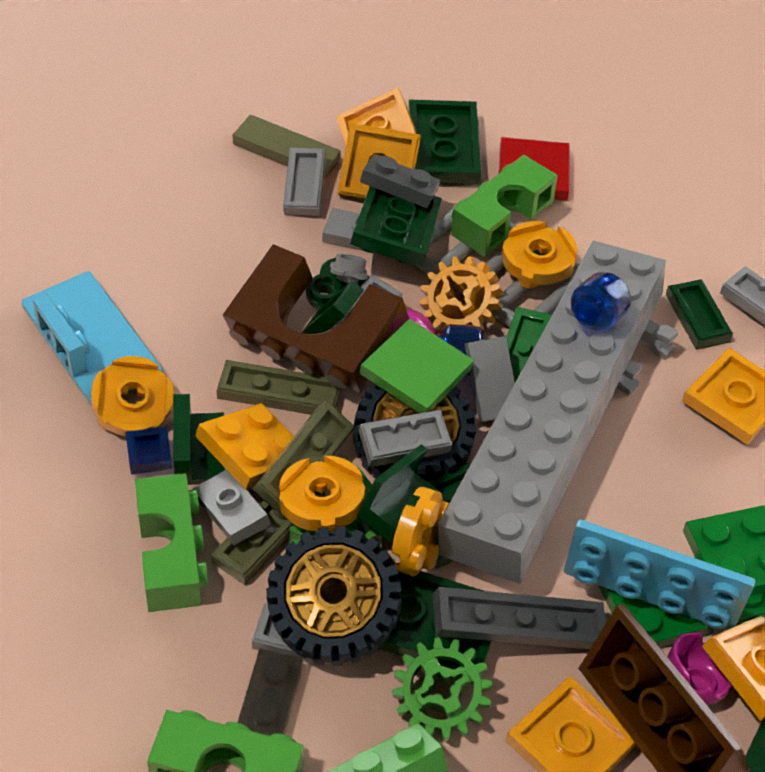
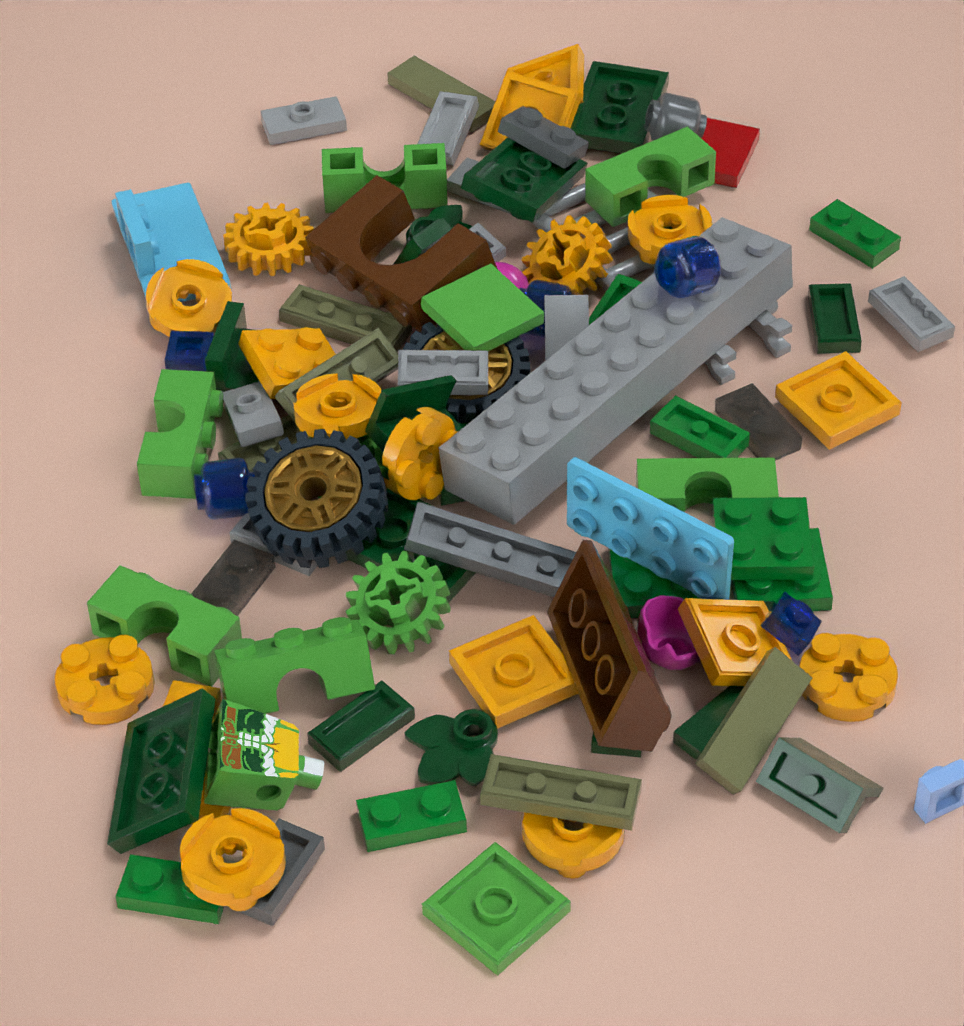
camera: 20 degrees right, 5 degrees down
(171, 191) = (303, 120): none -> light grey plate
(183, 318) = (268, 239): none -> light orange gear
(235, 596) = (222, 488): none -> clear blue head
(240, 249) = (419, 175): none -> bright green arch
(349, 268) = (456, 212): light grey plate -> none
(502, 146) = (673, 113): none -> dark grey head
(636, 450) = (698, 431): none -> green plate
(678, 430) = (769, 431): none -> clear smoke plate
(682, 229) = (855, 233): none -> green plate
(686, 498) = (699, 480): none -> bright green arch

